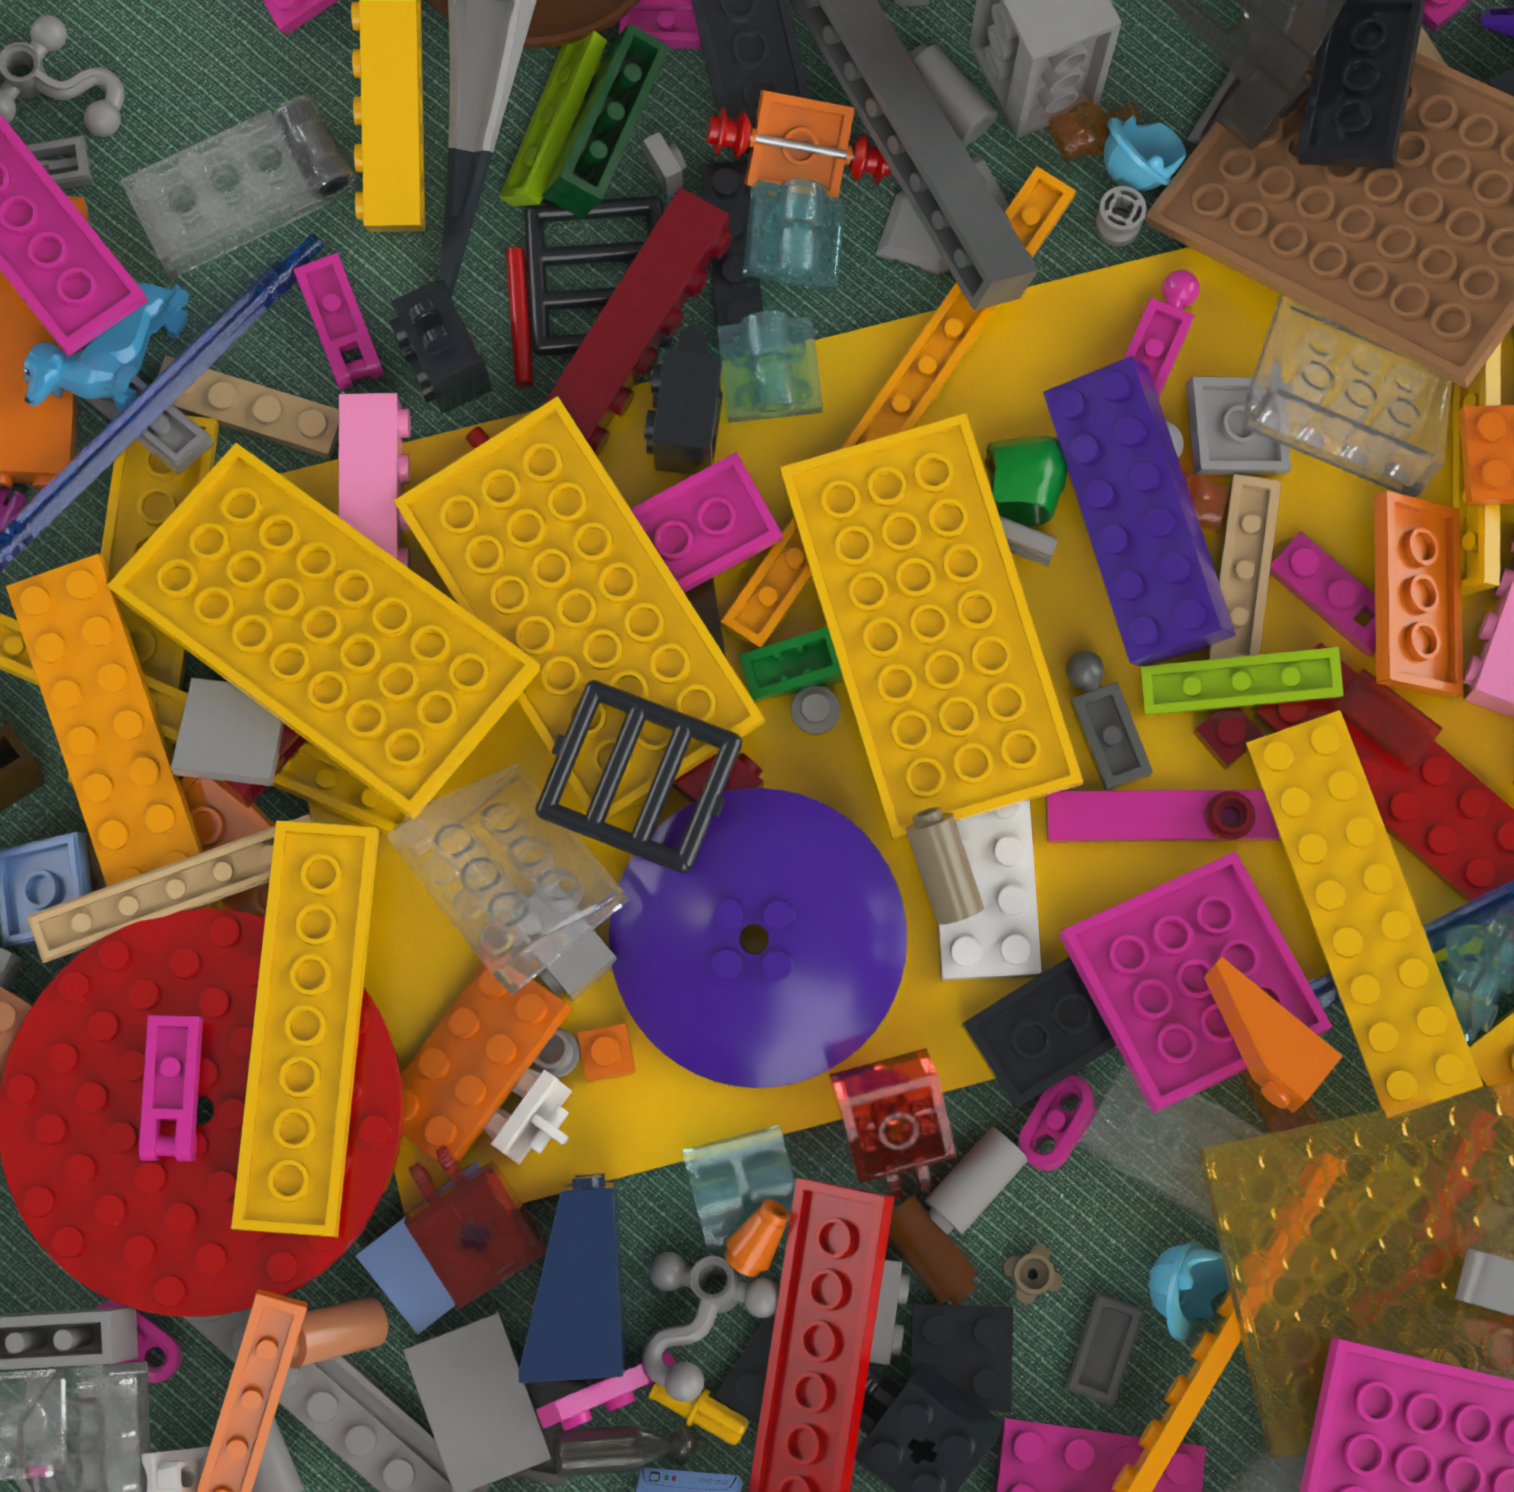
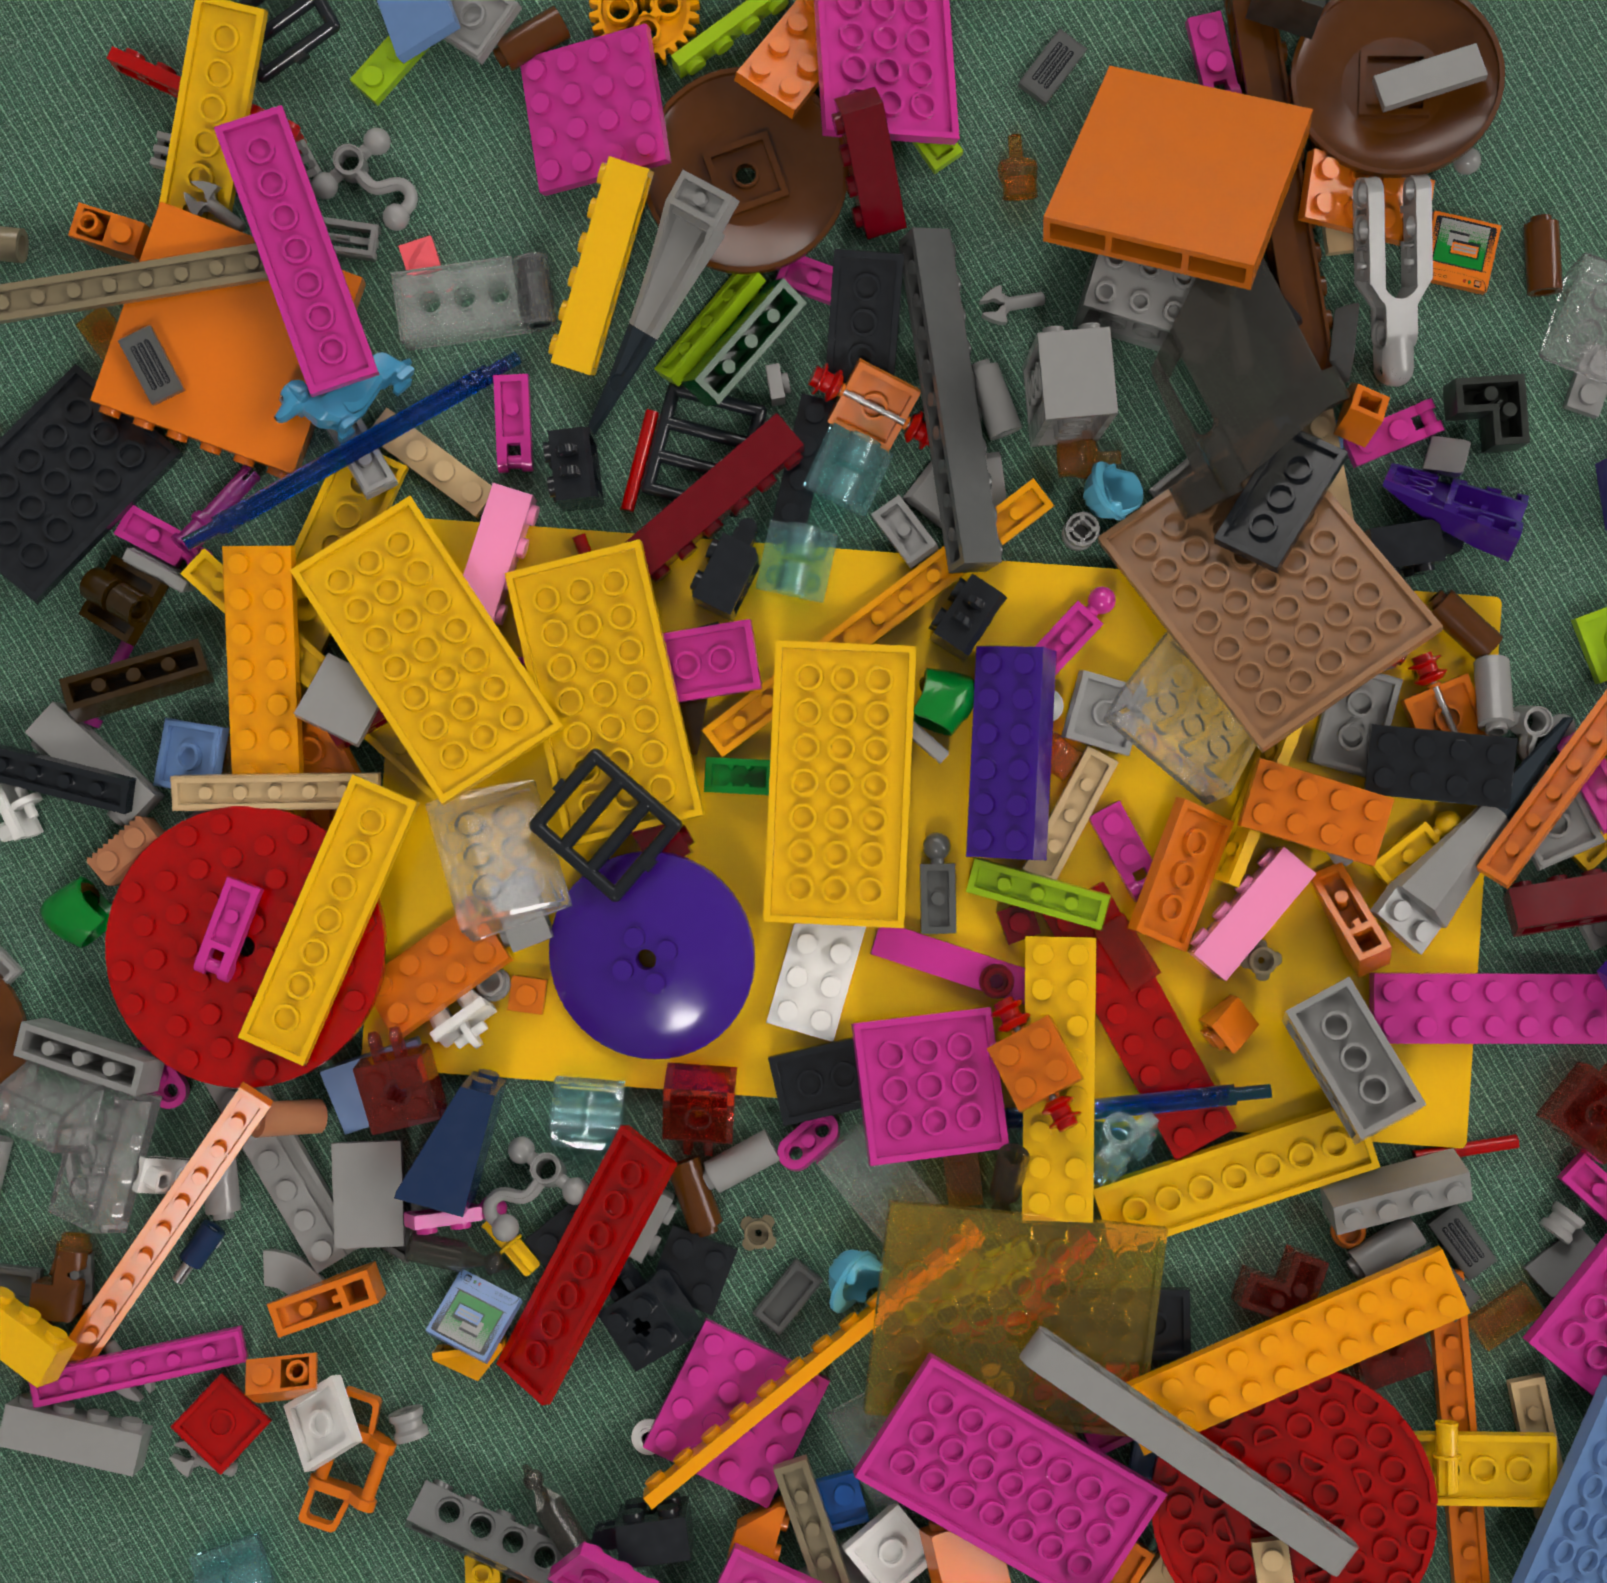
camera: 20 degrees right, 10 degrees up
(145, 150) = (419, 253): none -> coral tile
(757, 1239) = (583, 1153): orange cone -> none
(815, 710) = (745, 811): light grey plate -> none
(895, 288) = (905, 532): none -> light grey plate
(944, 866) = (789, 954): dark tan brick -> none
(1017, 362) = (967, 618): none -> black hinge
(1274, 1044) = (963, 1152): orange slope -> none
(1325, 898) = (1035, 1064): none -> orange plate
(1349, 1081) = (1008, 1175): none -> clear smoke wheel

